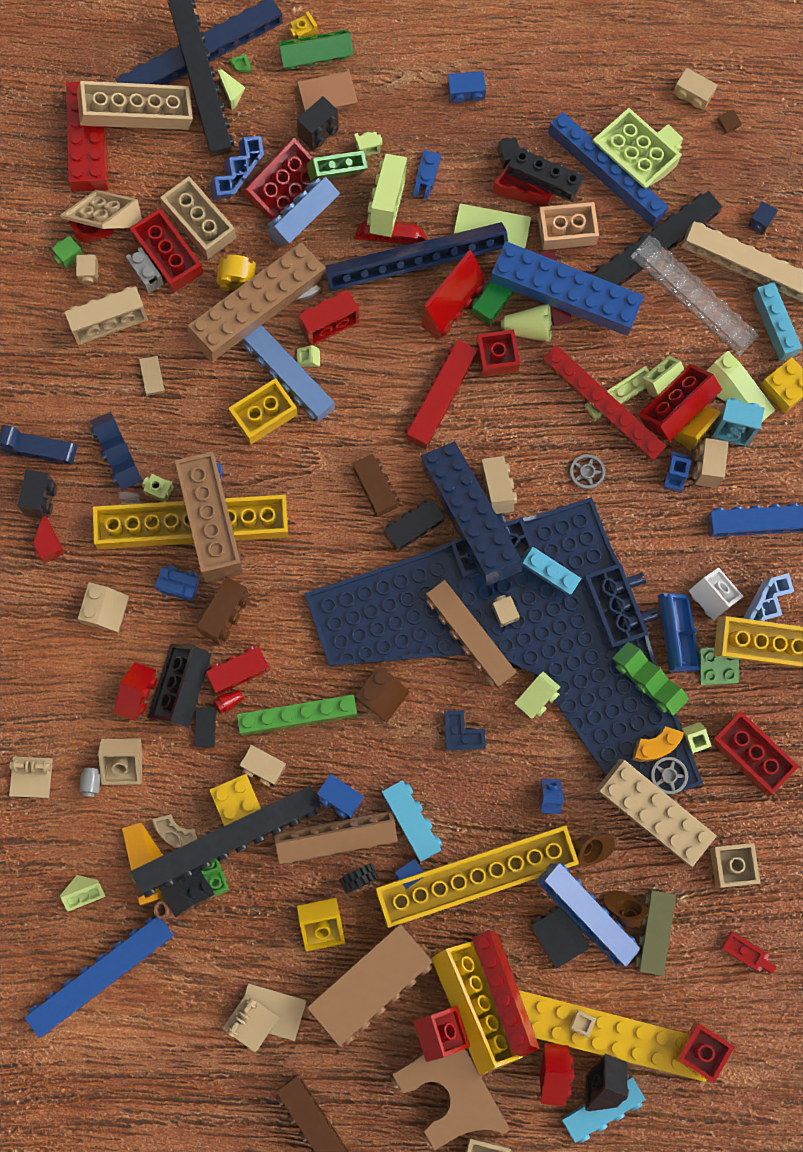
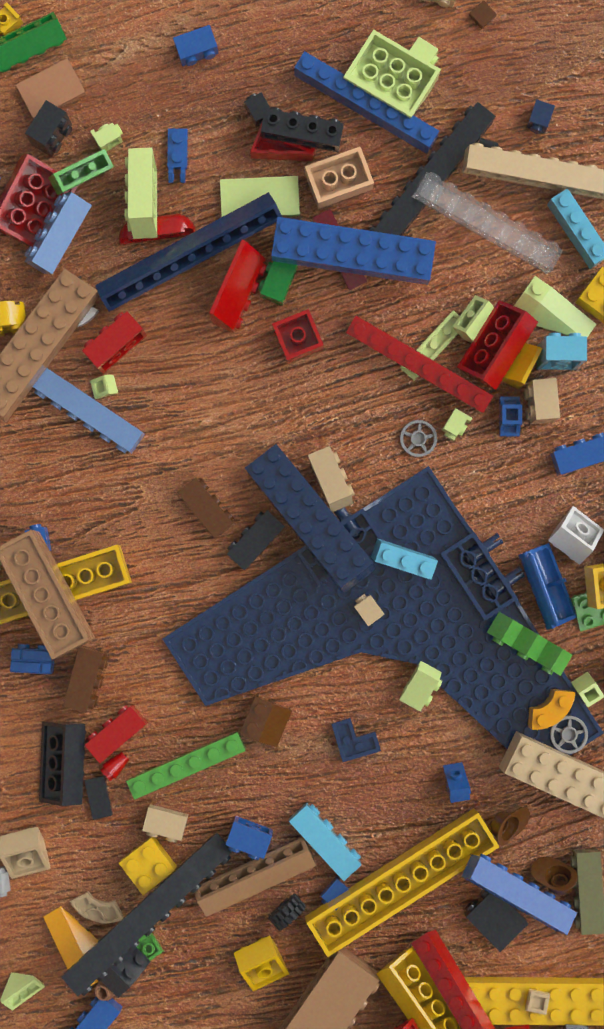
camera: 10 degrees left, 10 degrees up
(134, 691) = (18, 780): red brick -> none
(263, 411) = (71, 459): yellow brick -> none
(441, 394) = (250, 394): red brick -> none
(470, 634) = (340, 642): medium nougat brick -> none
(530, 323) = (323, 295): yellowish green cone -> none
(625, 466) = (456, 424): none -> yellowish green brick

